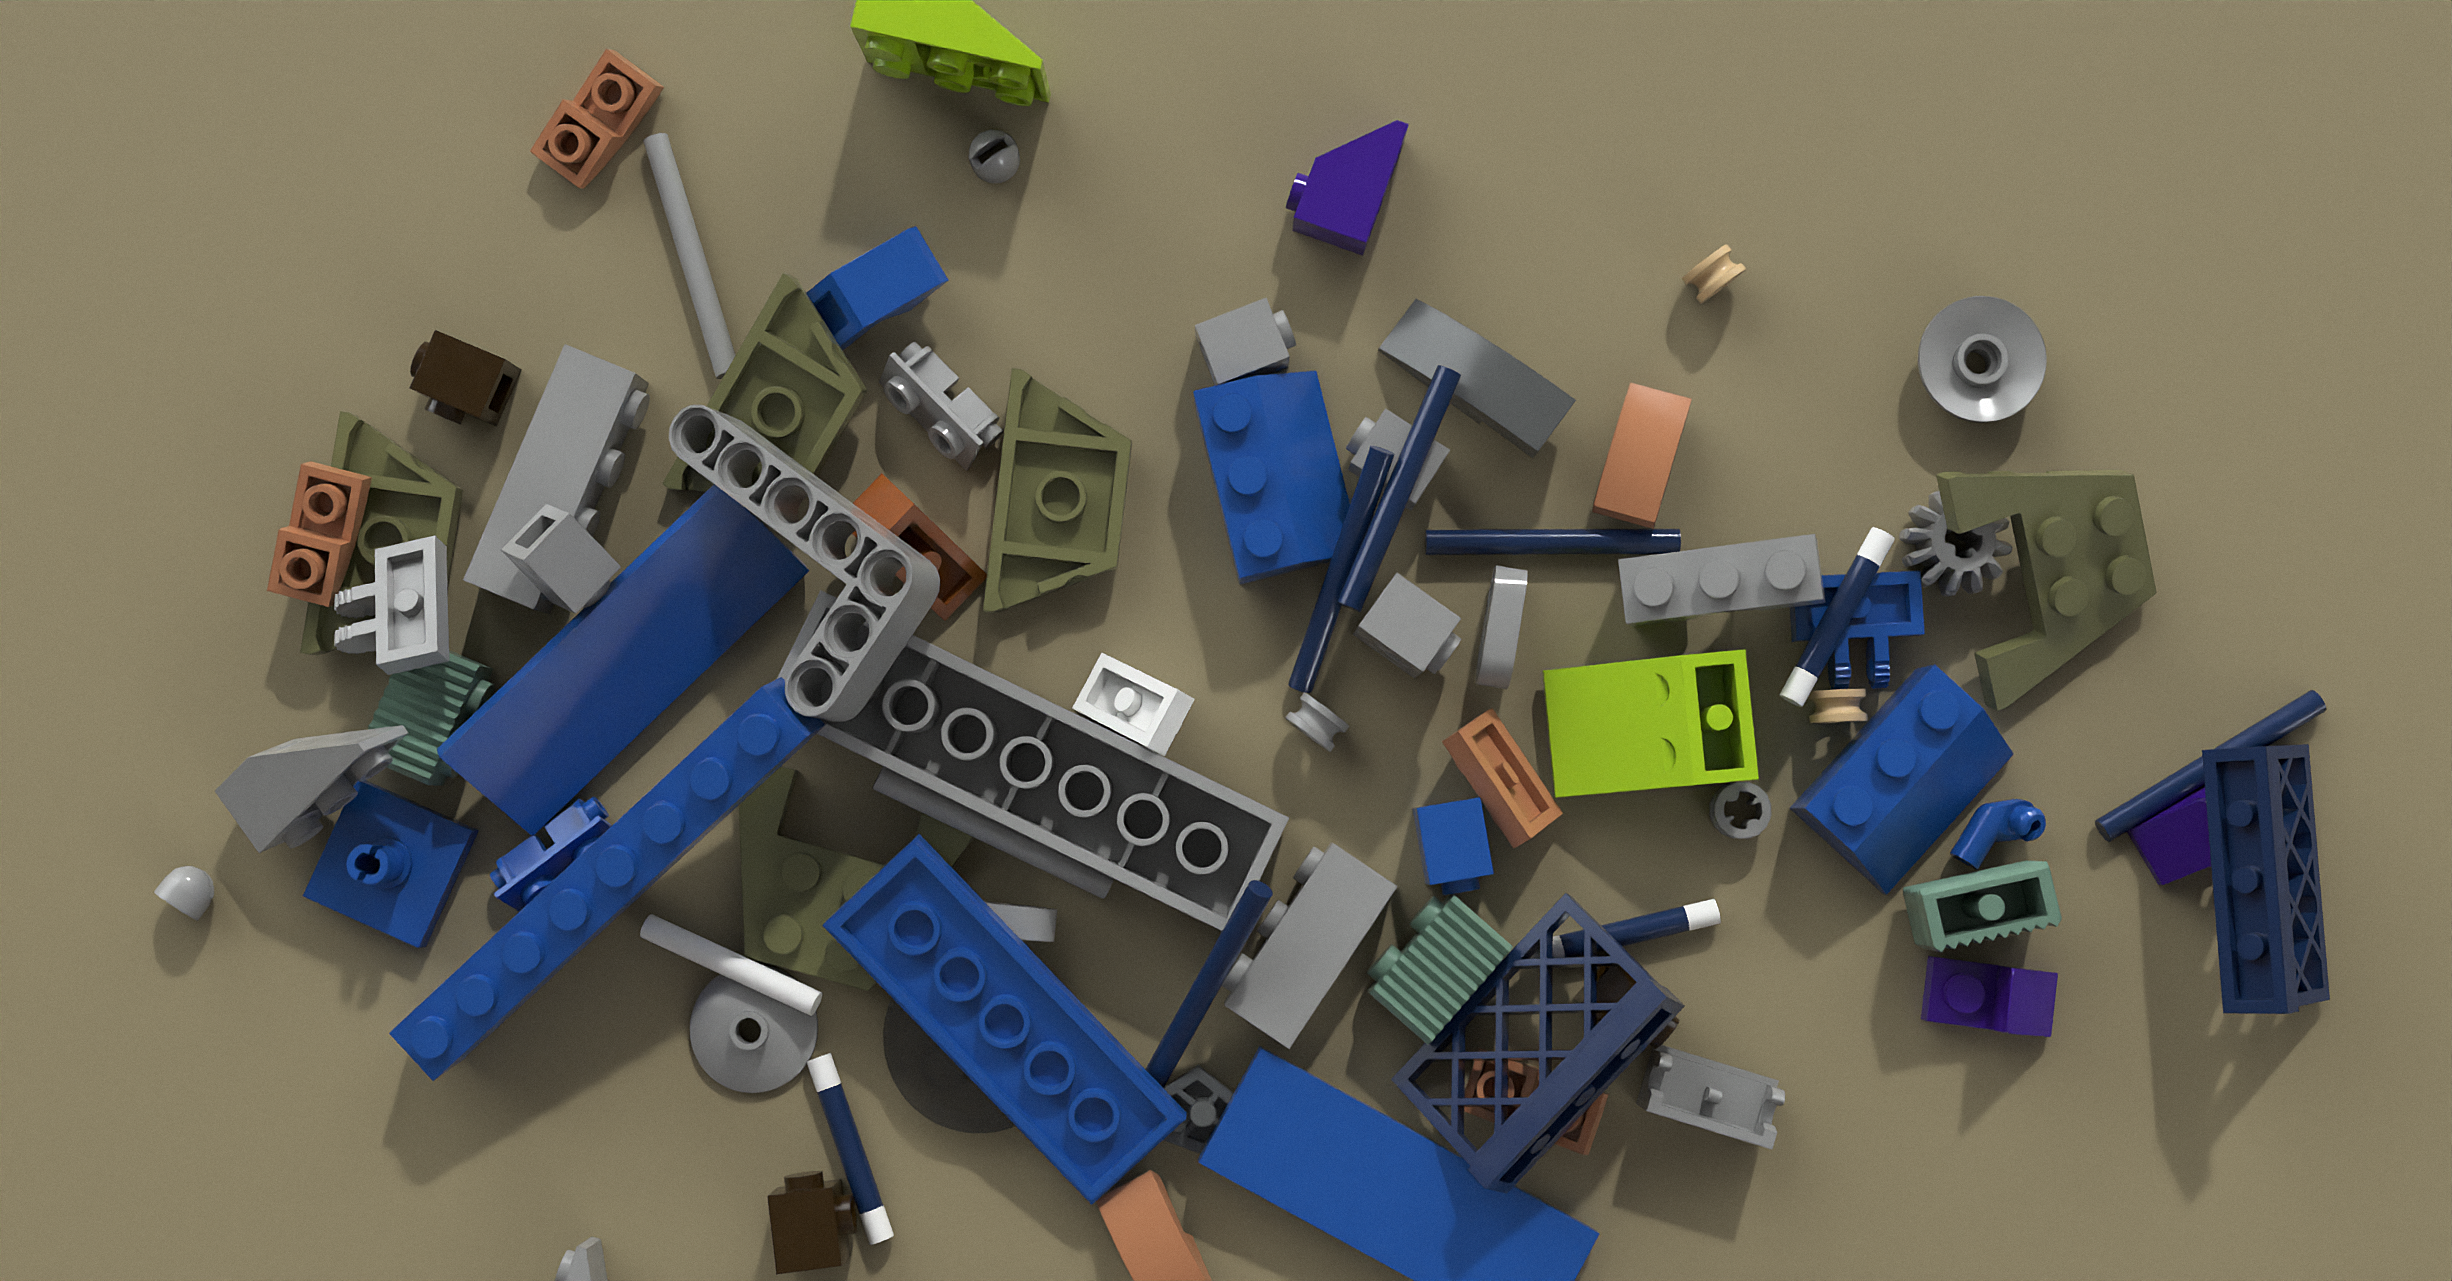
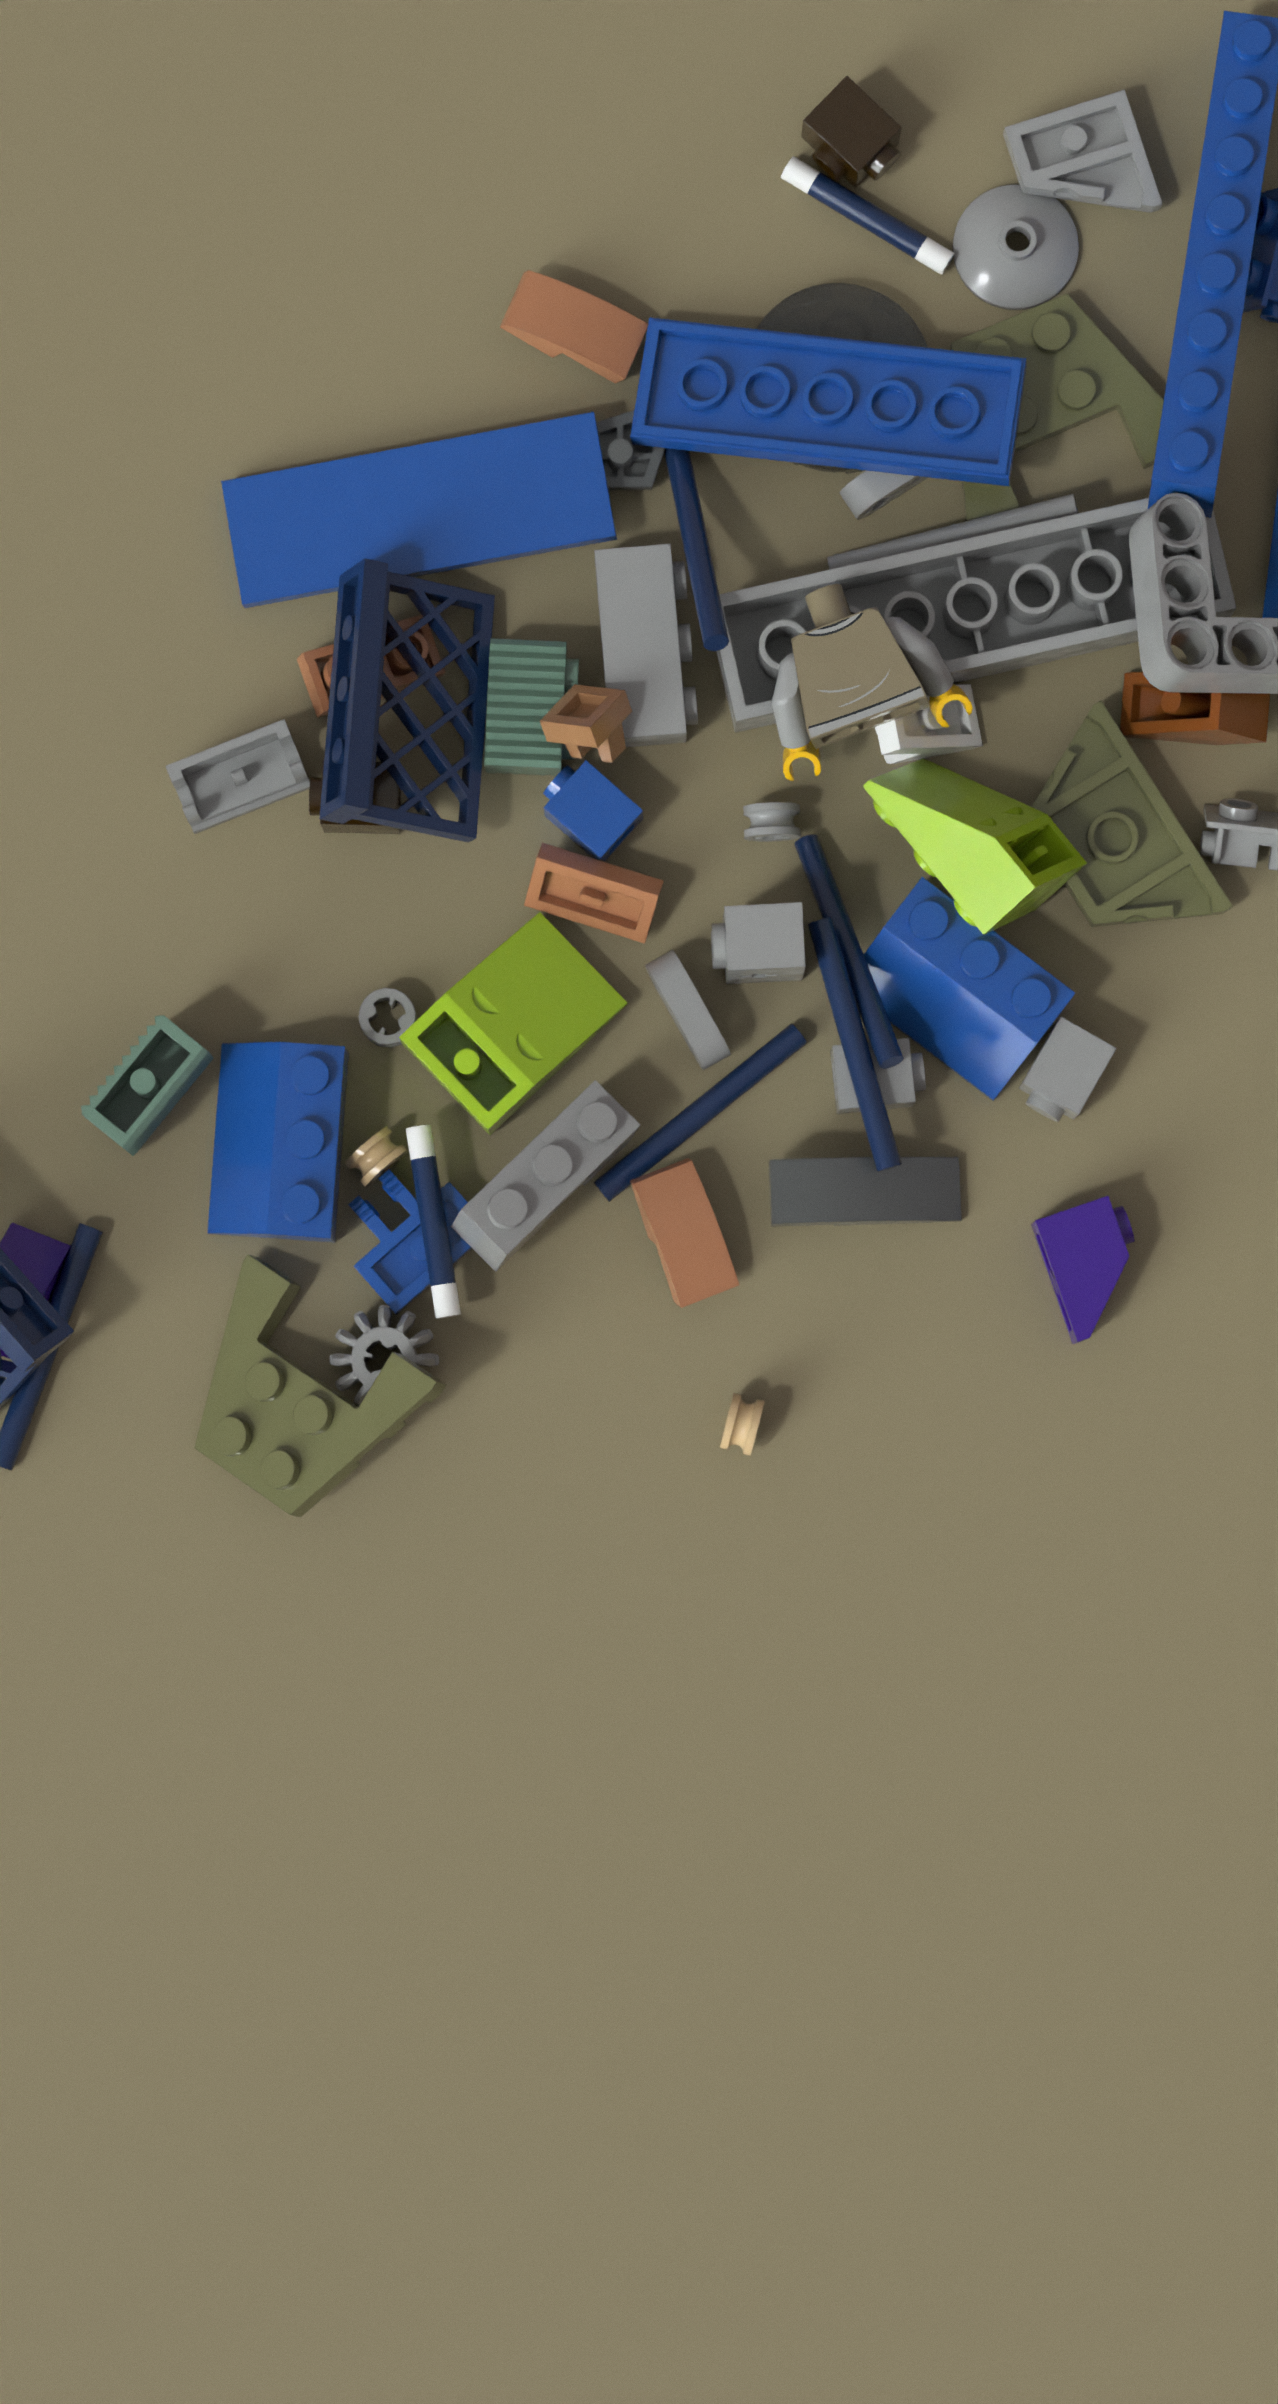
camera: 140 degrees right, 0 degrees up
(639, 1056) = (1085, 155): none -> light grey wing
(731, 964) = (1072, 279): white bar -> none
(1169, 773) = (854, 677): none -> torso
(1174, 574) = (980, 844): none -> lime slope
(1405, 912) = (588, 720): none -> medium nougat tile
(1642, 928) = (392, 865): dark blue bar -> none
(1989, 996) = (78, 1028): dark purple slope -> none
(1997, 823) = (180, 1166): blue arm -> none
(2011, 353) = (442, 1529): light grey dish -> none

